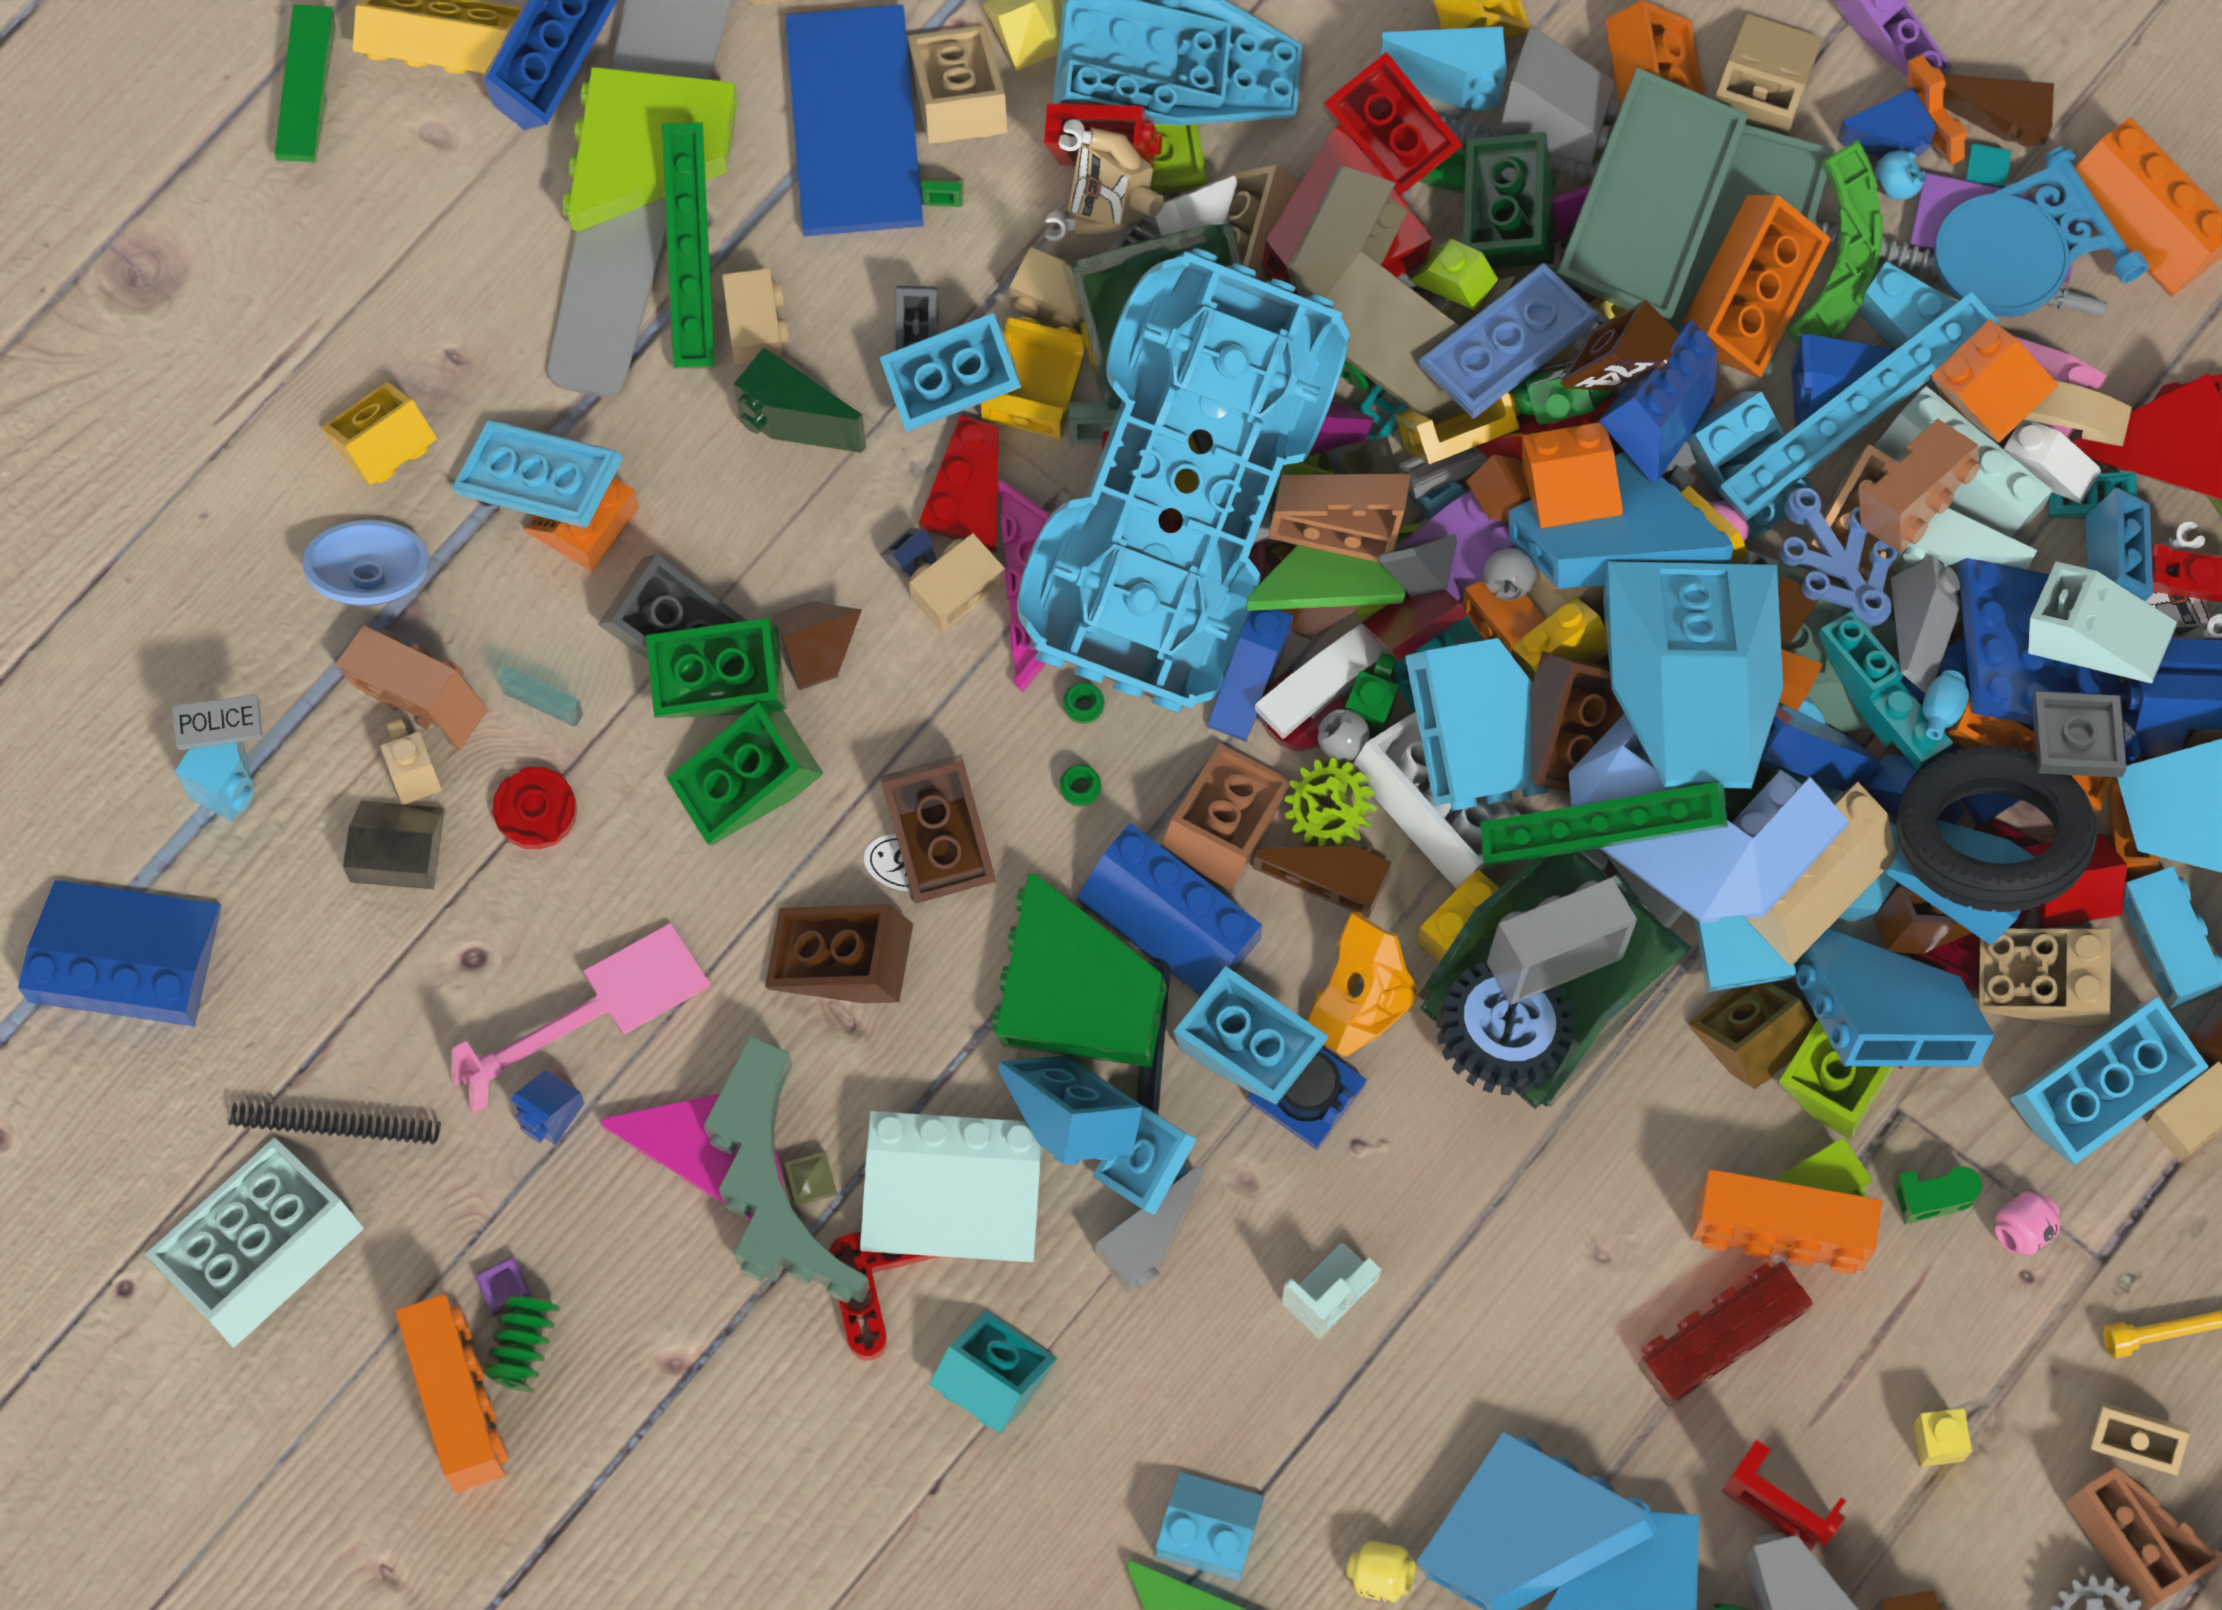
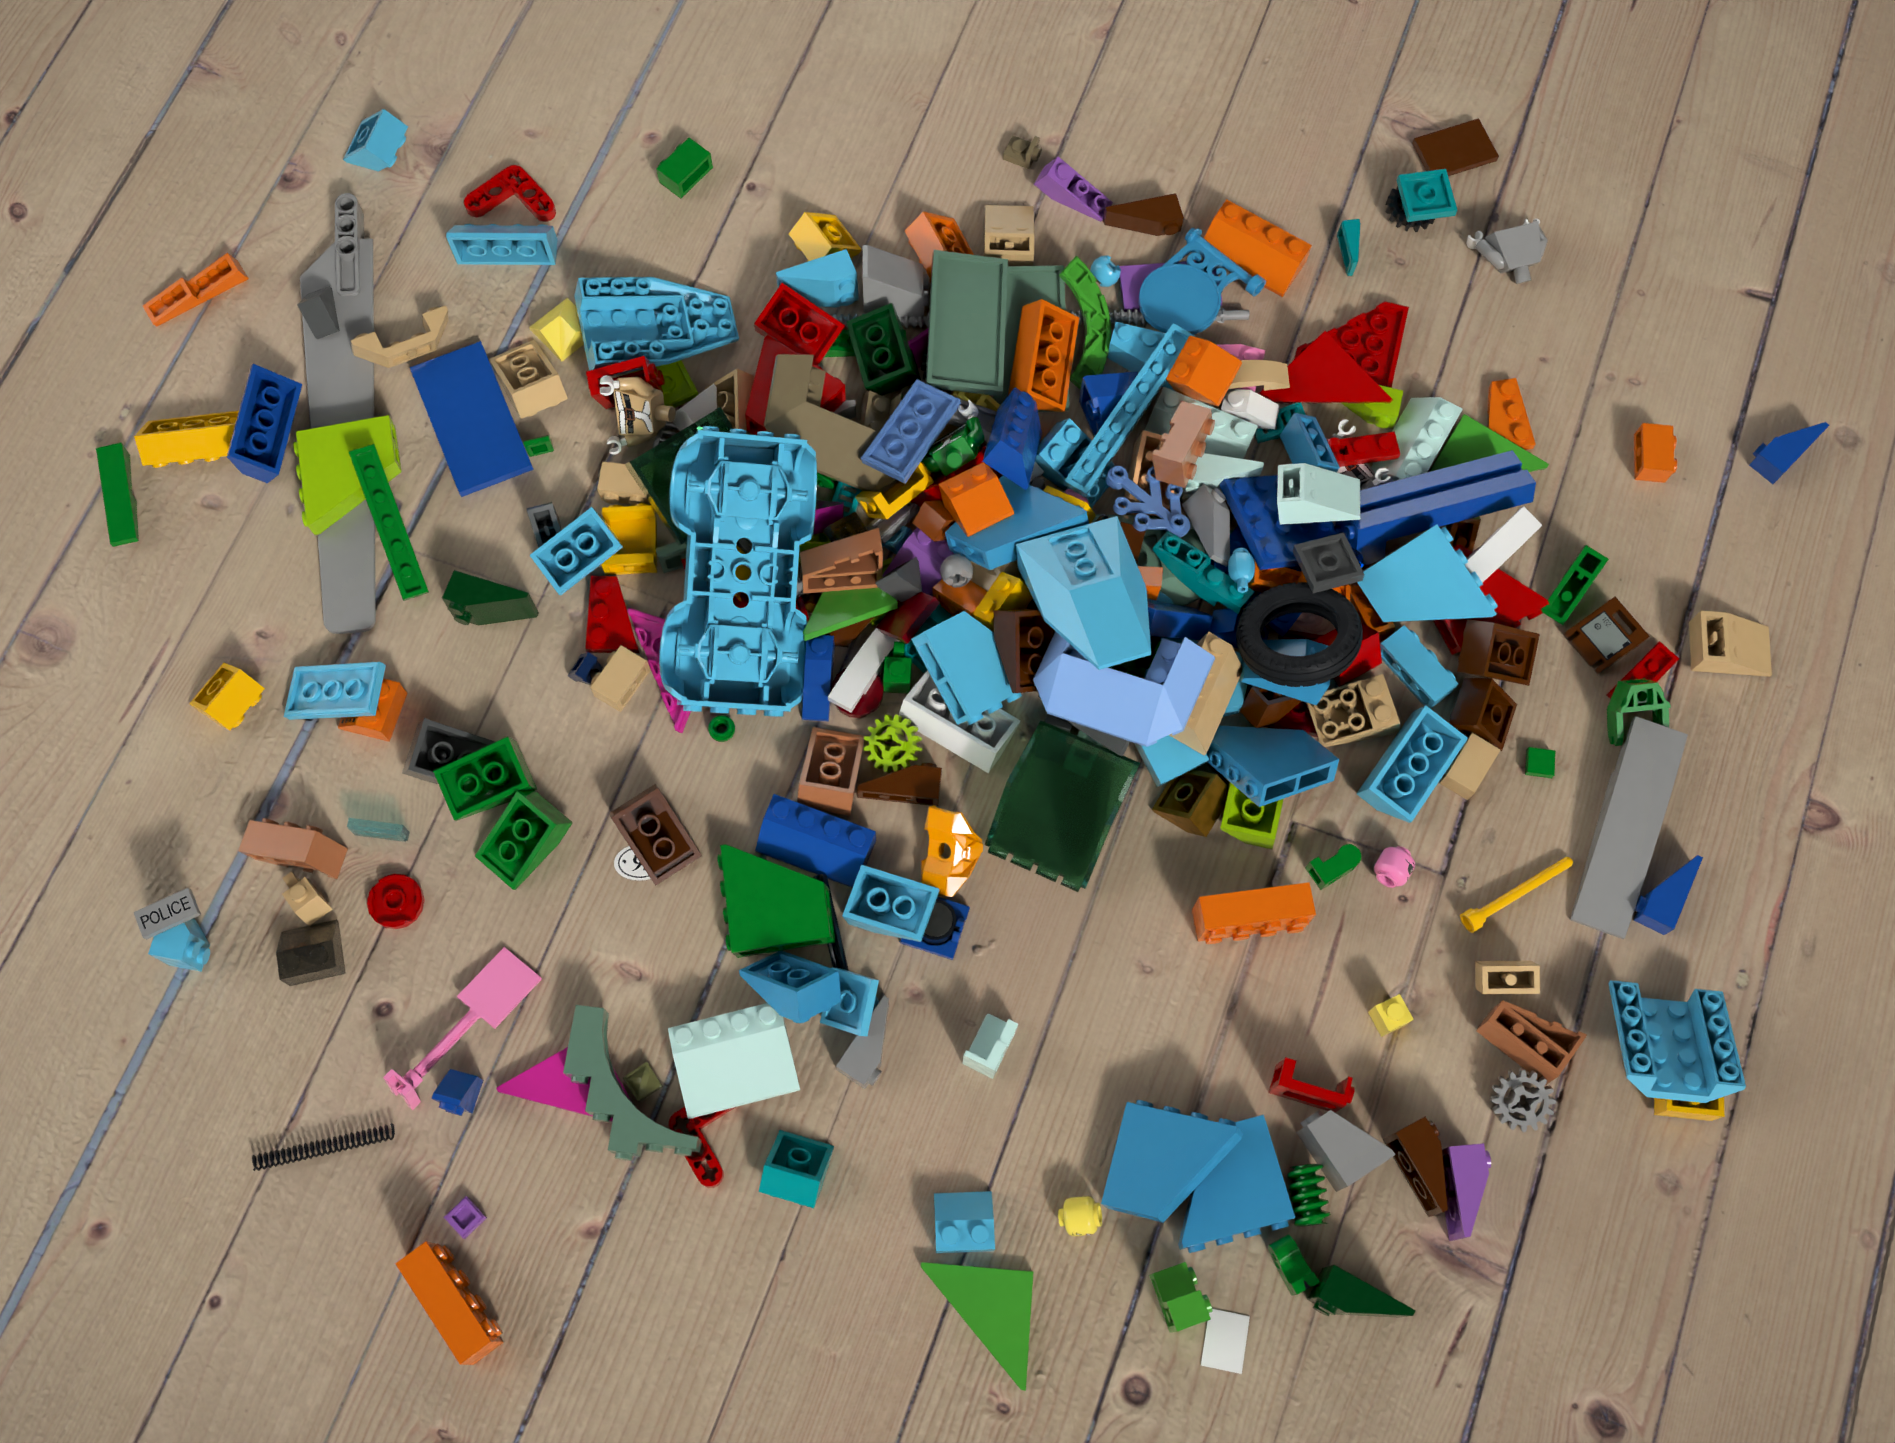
camera: 20 degrees left, 0 degrees up
(120, 953) = (149, 1081): blue slope -> none
(254, 1241) = (291, 1244): light aqua slope -> none
(365, 562) = (240, 780): light blue dish -> none
(519, 1341) = (486, 1252): green piece -> none
(753, 314) = (443, 553): tan brick -> none
(816, 639) = (543, 740): reddish brown slope -> none
(841, 952) = (618, 932): reddish brown slope -> none
(1076, 774) = (734, 772): green plate -> none
(1343, 735) = (887, 699): light grey piece -> none
(1447, 921) = (992, 787): yellow brick -> none
(1456, 274) = (866, 400): lime slope -> none
(1474, 1033) = (1061, 839): wheel -> none
(1561, 939) = (1062, 783): light grey piece -> none
(1604, 824) = (1067, 704): green plate -> none
(1622, 350) = (982, 414): reddish brown slope -> none
(1724, 1333) = (1239, 993): clear red brick -> none
(1831, 1169) = (1268, 873): lime slope -> none
(1890, 126) = (1090, 244): blue slope -> none
(1929, 85) = (1120, 238): orange plate -> none
(1988, 166) = (1153, 252): teal tile -> none

